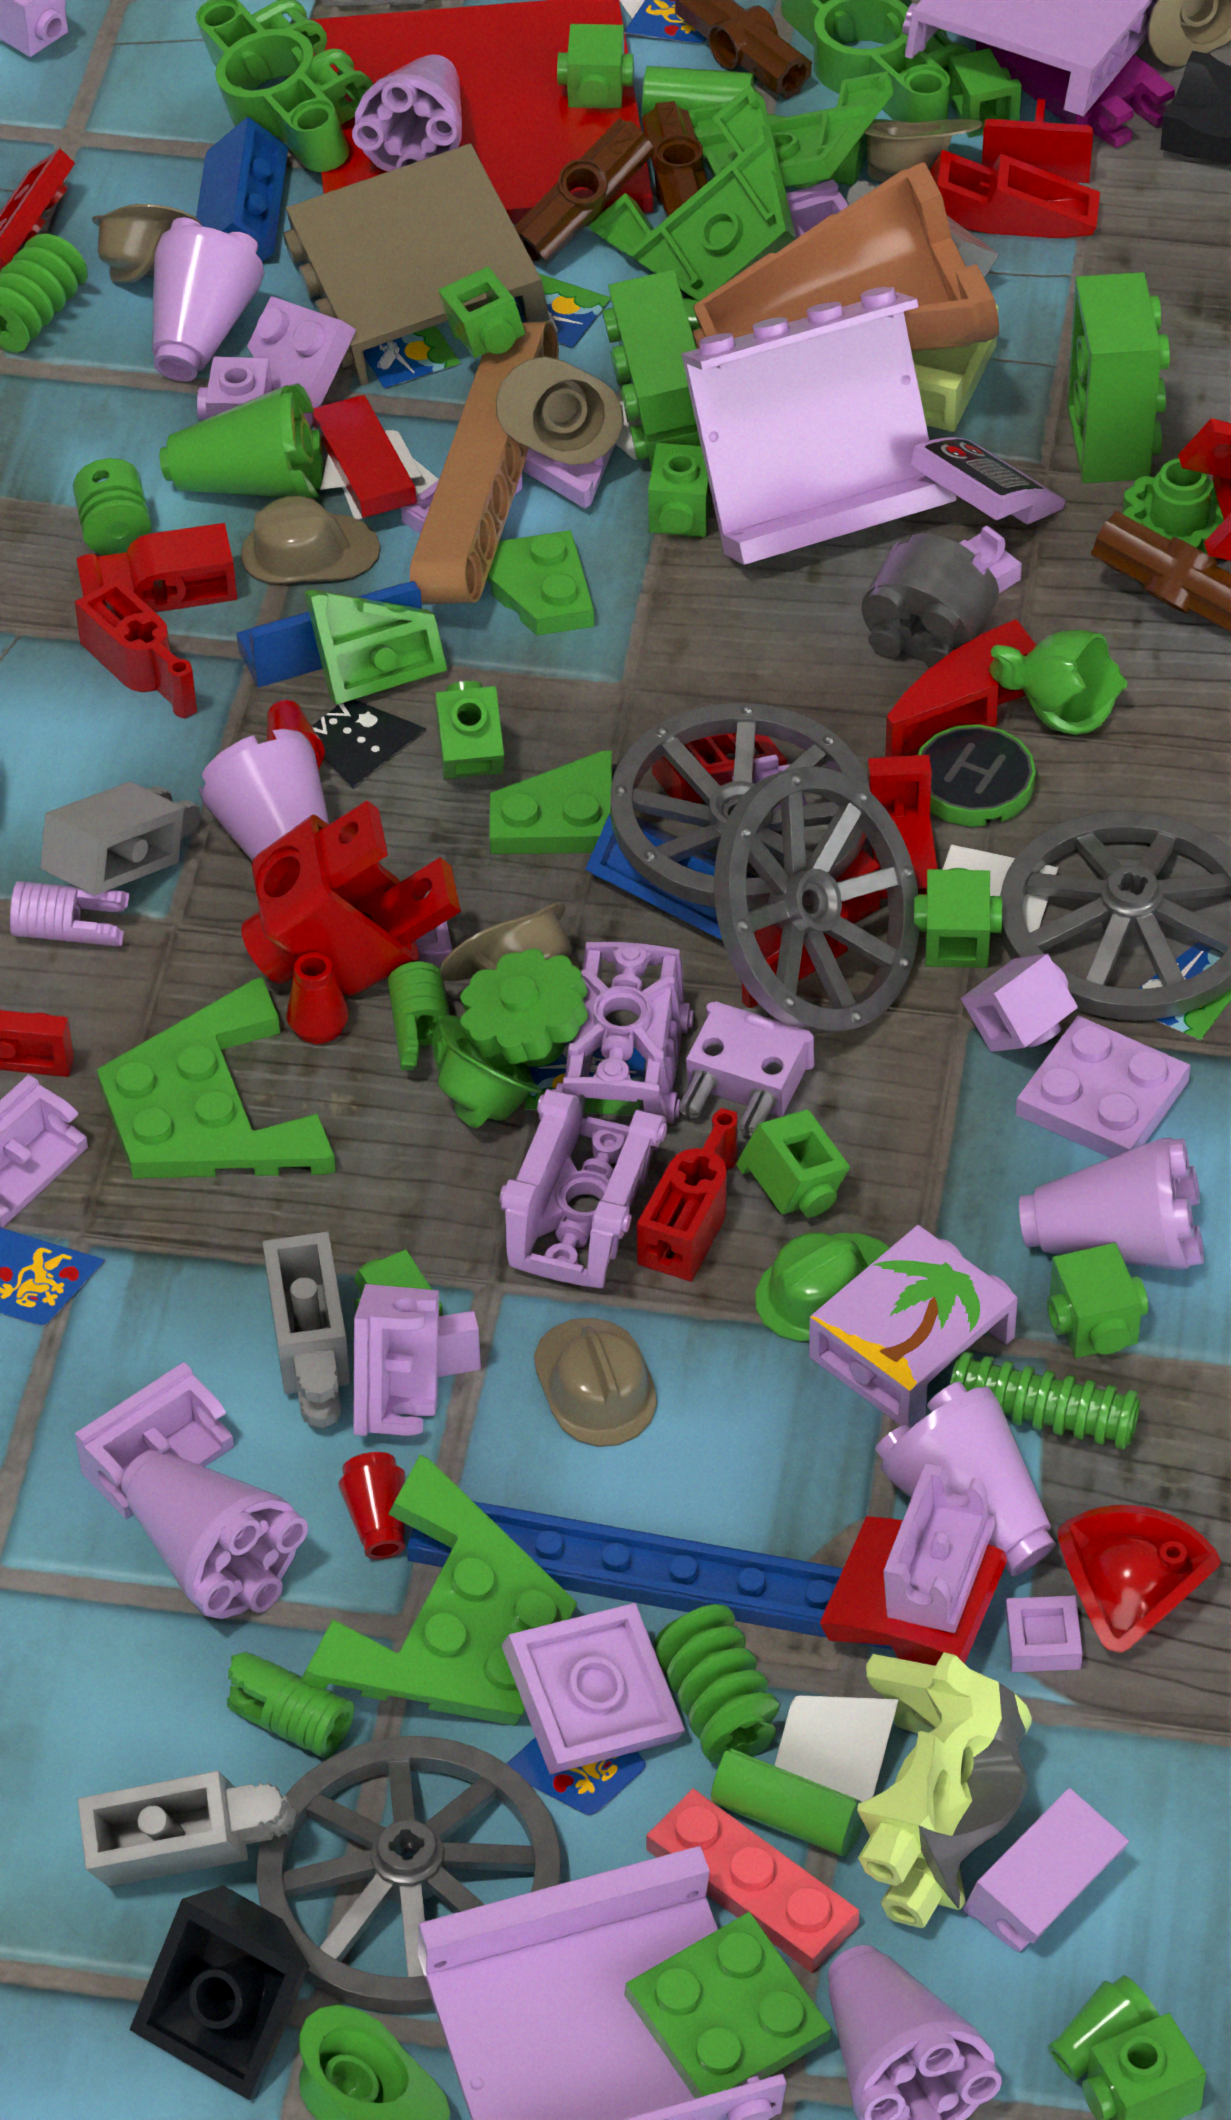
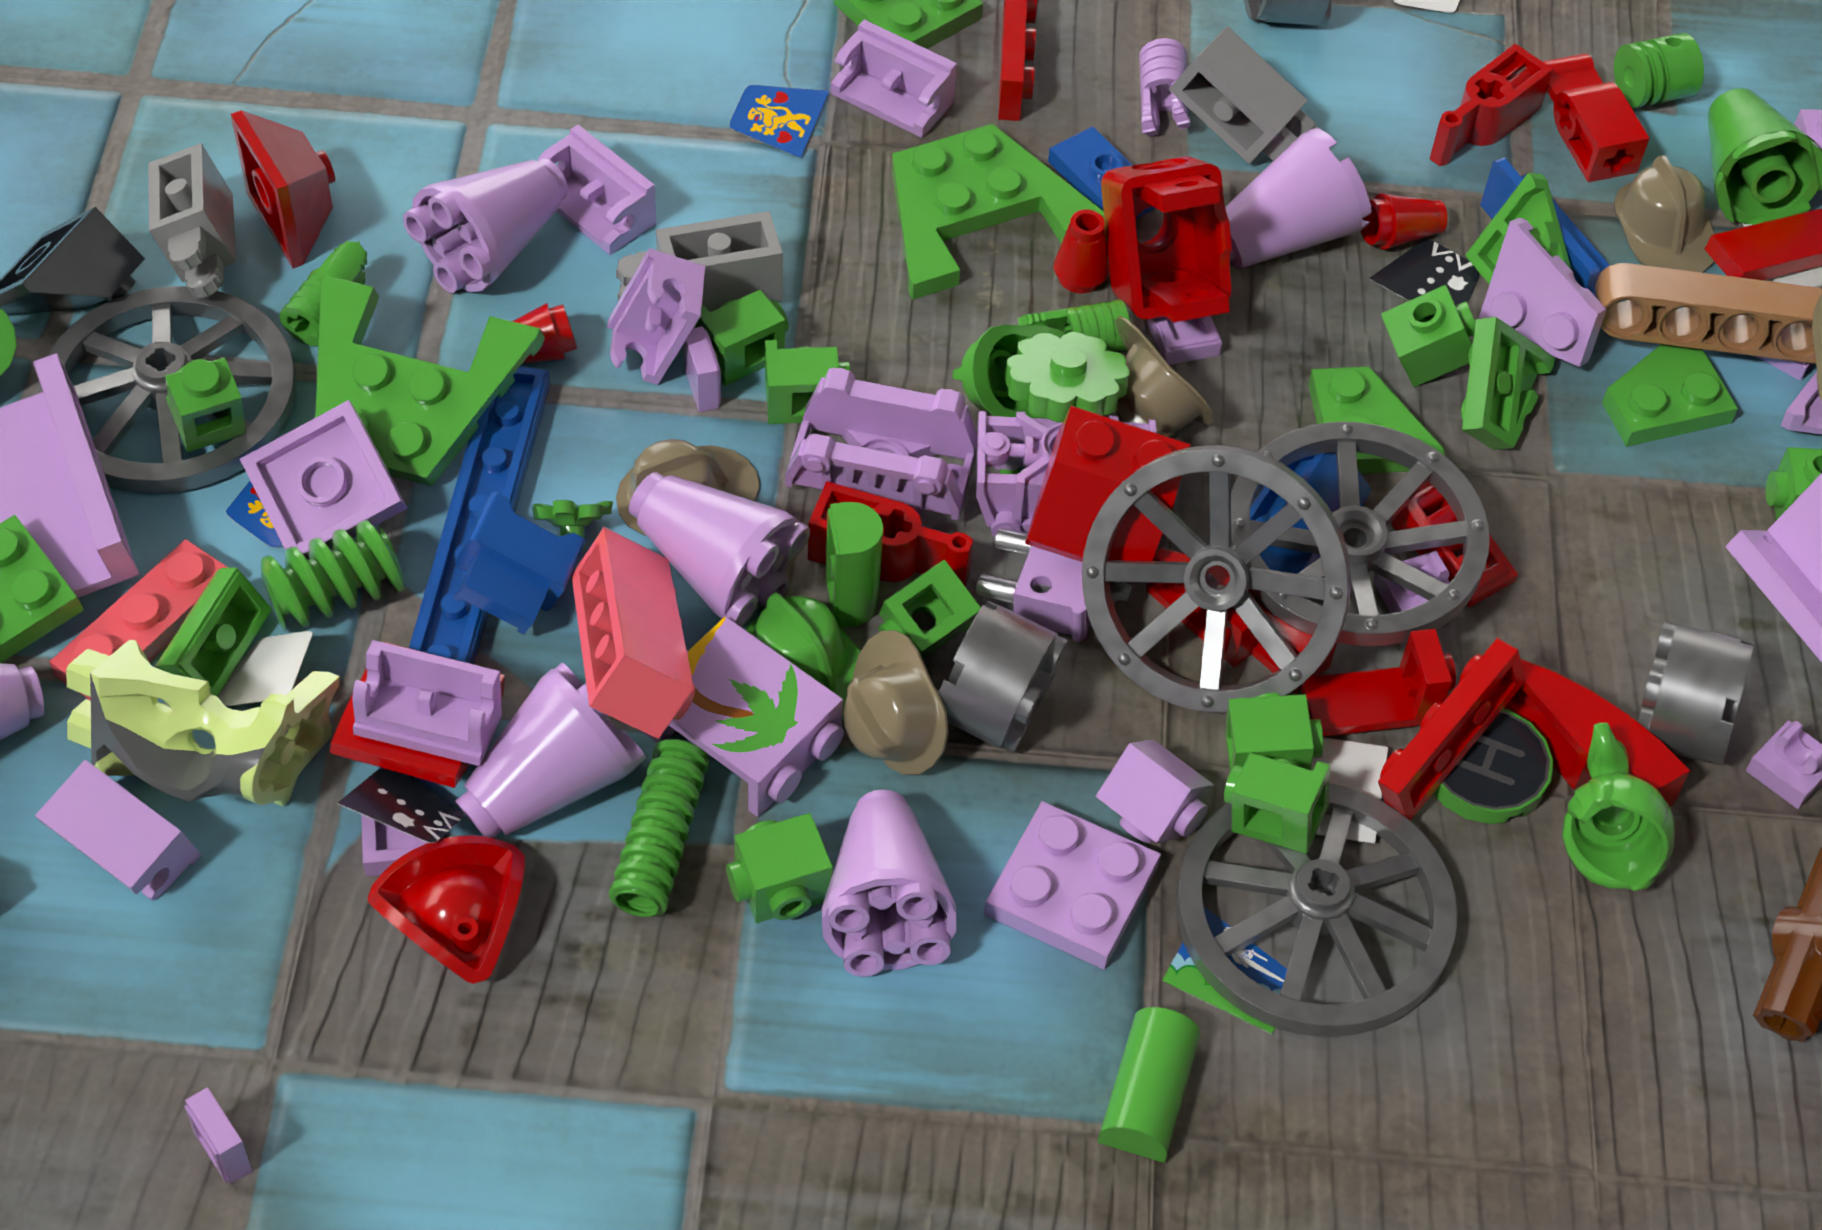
camera: 80 degrees right, 5 degrees up
(133, 1735) = (284, 182): none -> red slope
(183, 983) = (1085, 160): none -> blue plate
(438, 638) = (1542, 298): none -> lavender wing
(471, 1258) = (792, 378): none -> bright green brick
(485, 1789) = (200, 390): none -> bright green brick
(517, 683) = (1500, 383): none -> bright green wing
(642, 1467) = (569, 516): none -> bright green plant
(688, 979) = (1084, 469): none -> red slope
(717, 1509) = (514, 564): none -> blue piece
(718, 1314) = (719, 542): none -> lavender cone
(749, 1205) = (853, 562): none -> bright green brick
(850, 1374) = (631, 634): none -> coral brick
(890, 1103) = (1000, 676): none -> flat silver brick
(908, 1185) = (895, 706): none -> dark tan piece
(968, 772) = (1451, 728): none -> red plate
(1031, 1602) = (403, 805): none -> black sticker
(1046, 902) = (1278, 801): none -> bright green brick

